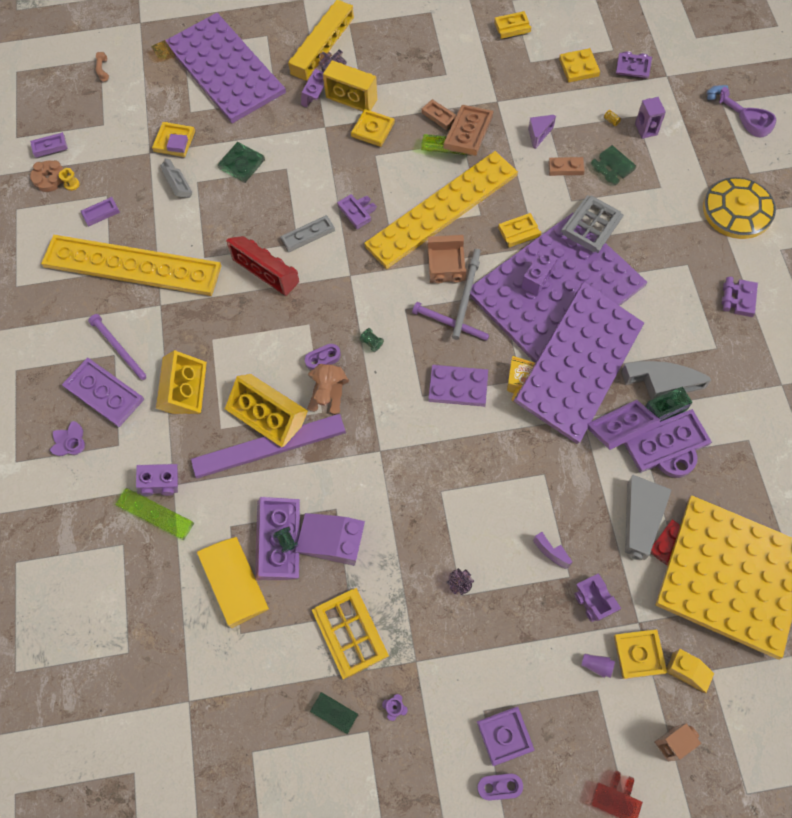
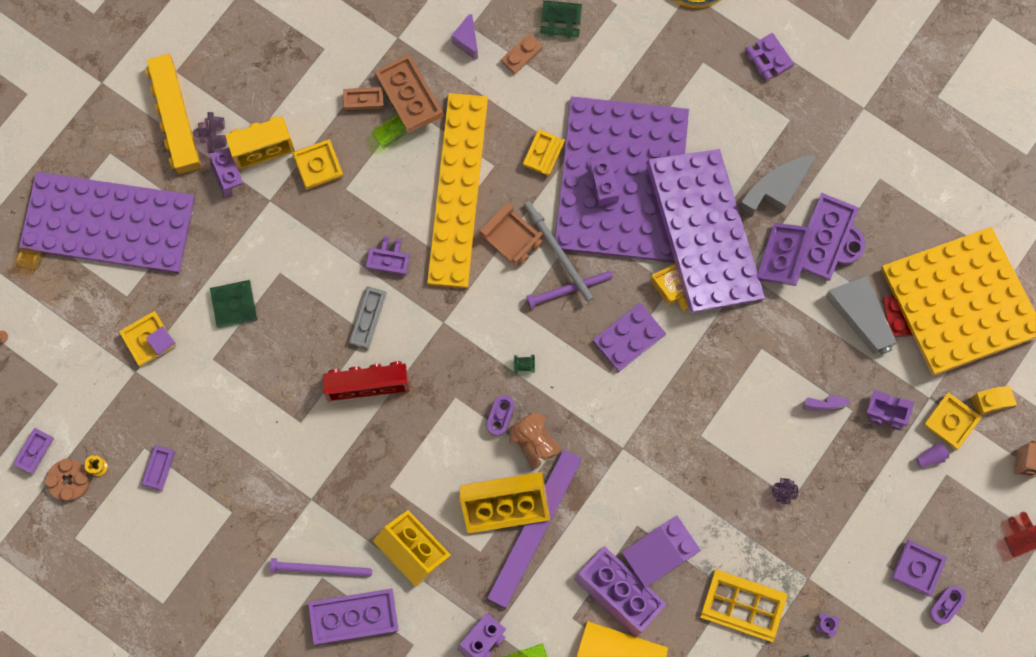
camera: 50 degrees left, 10 degrees up
(132, 265) = (247, 489): yellow plate -> none
(175, 179) = (194, 375): light grey hinge -> none
(285, 540) = (632, 586): clear green bush -> none
(568, 229) = (616, 89): light grey piece -> none
(670, 404) = (804, 206): clear green brick -> none

